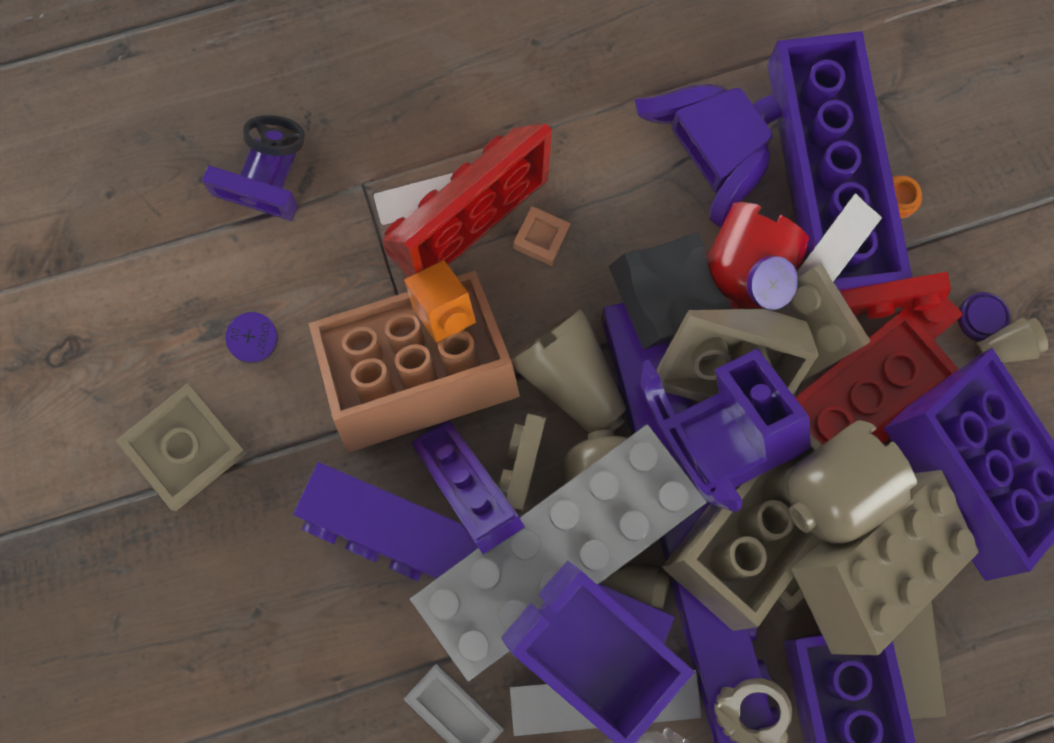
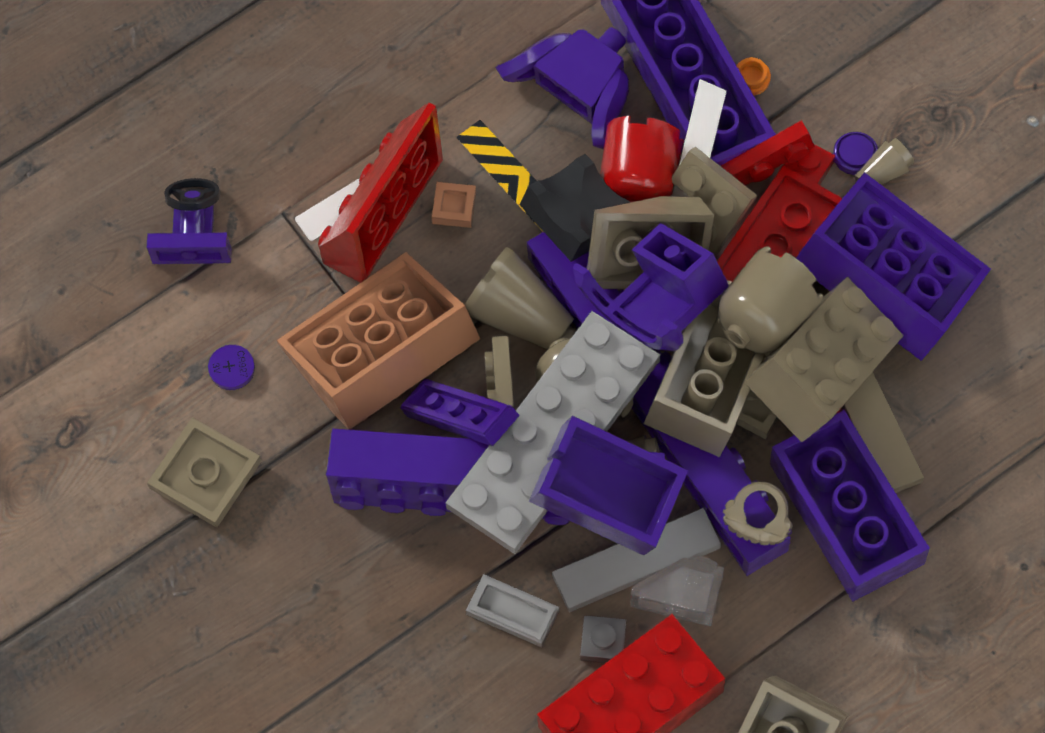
camera: 10 degrees left, 10 degrees down
(440, 301) = (386, 279): orange brick -> none
(605, 204) = (497, 161): none -> sticker
(772, 282) = (659, 173): piece -> none

